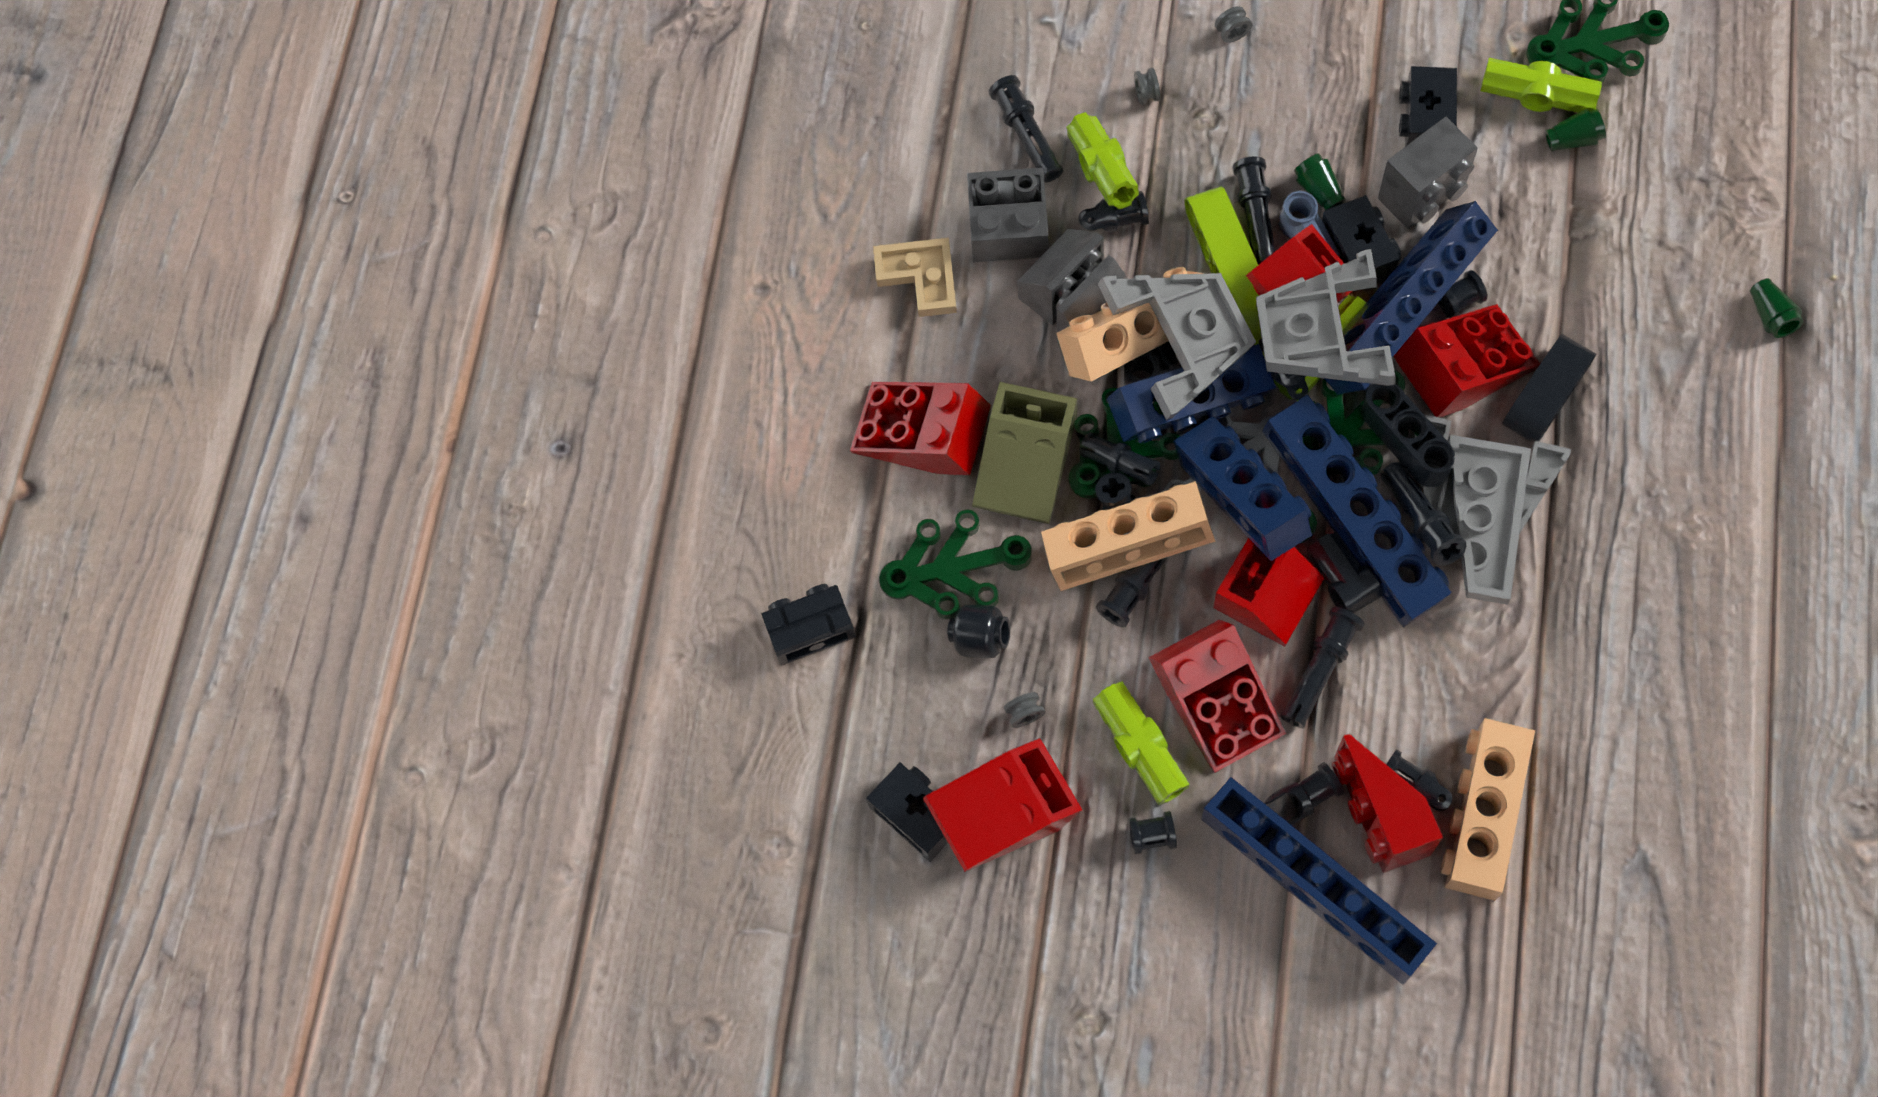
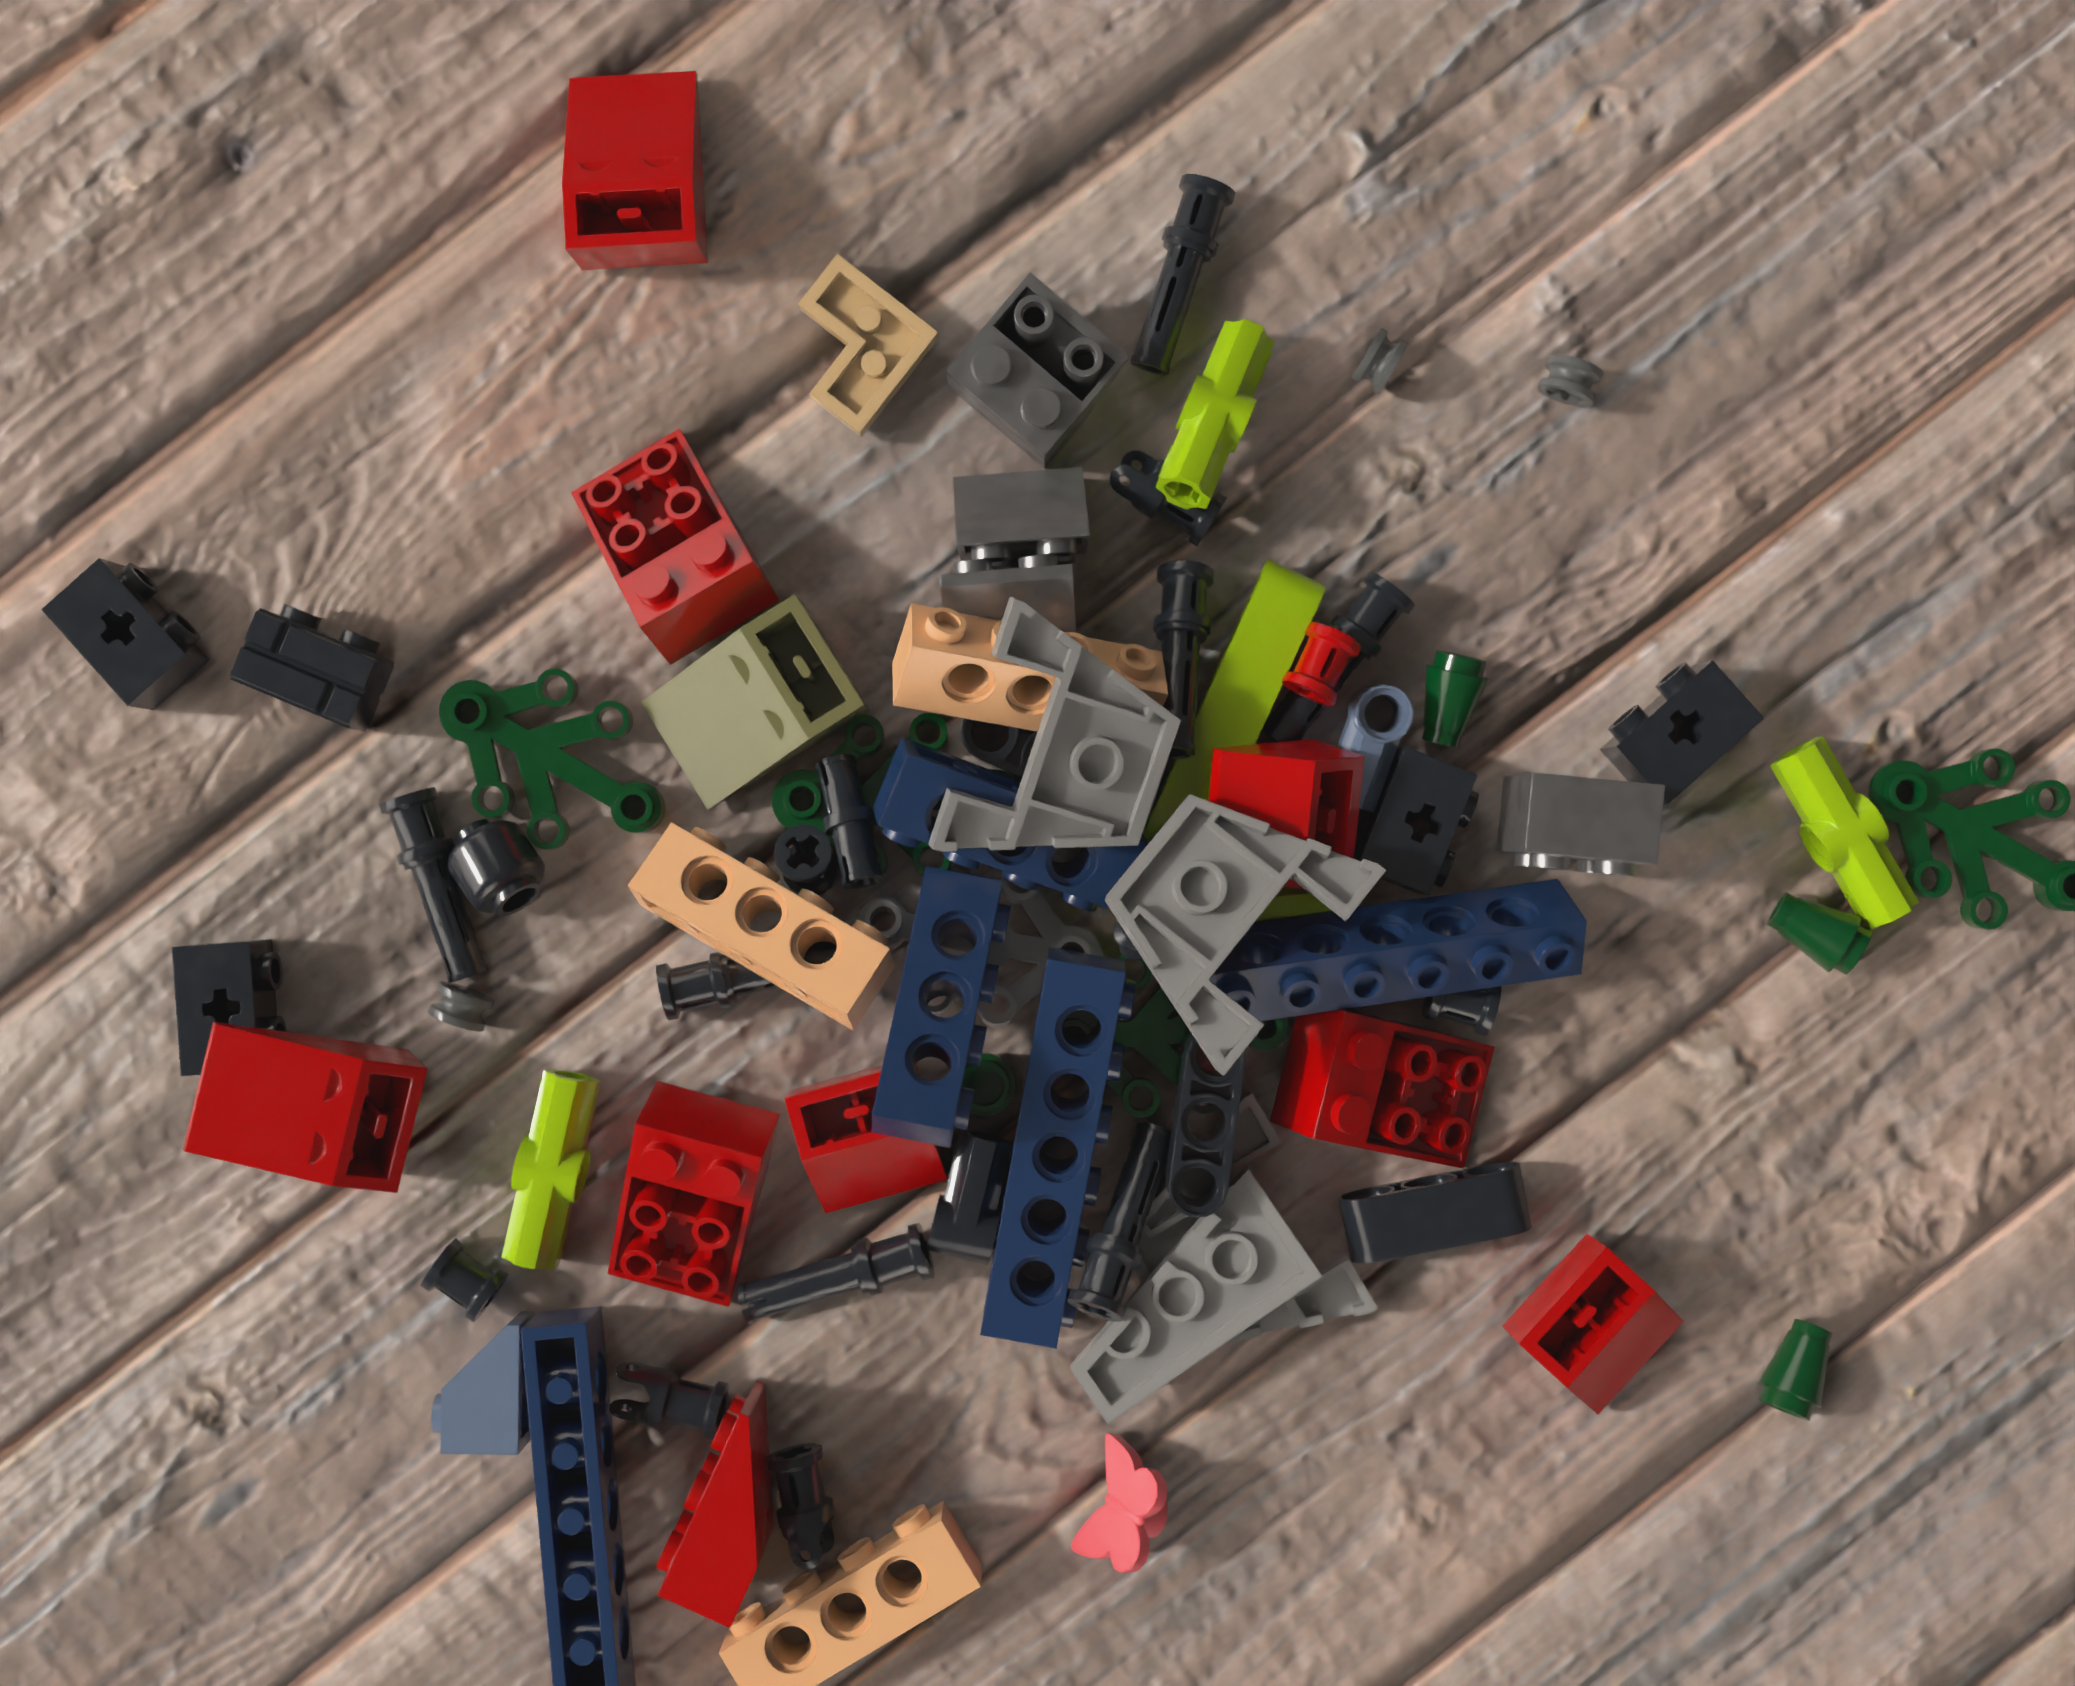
camera: 35 degrees right, 20 degrees up
(722, 700) = (95, 619): none -> black brick
(753, 292) = (634, 171): none -> red slope
(941, 658) = (427, 855): none -> black pin
(1177, 252) = (1181, 631): none -> black pin
(1219, 872) = (486, 1401): none -> sand blue slope
(1253, 210) = (1321, 664): none -> red bush
(1563, 638) = (1132, 1511): none -> coral animal
(1667, 366) = (1593, 1323): none -> red slope

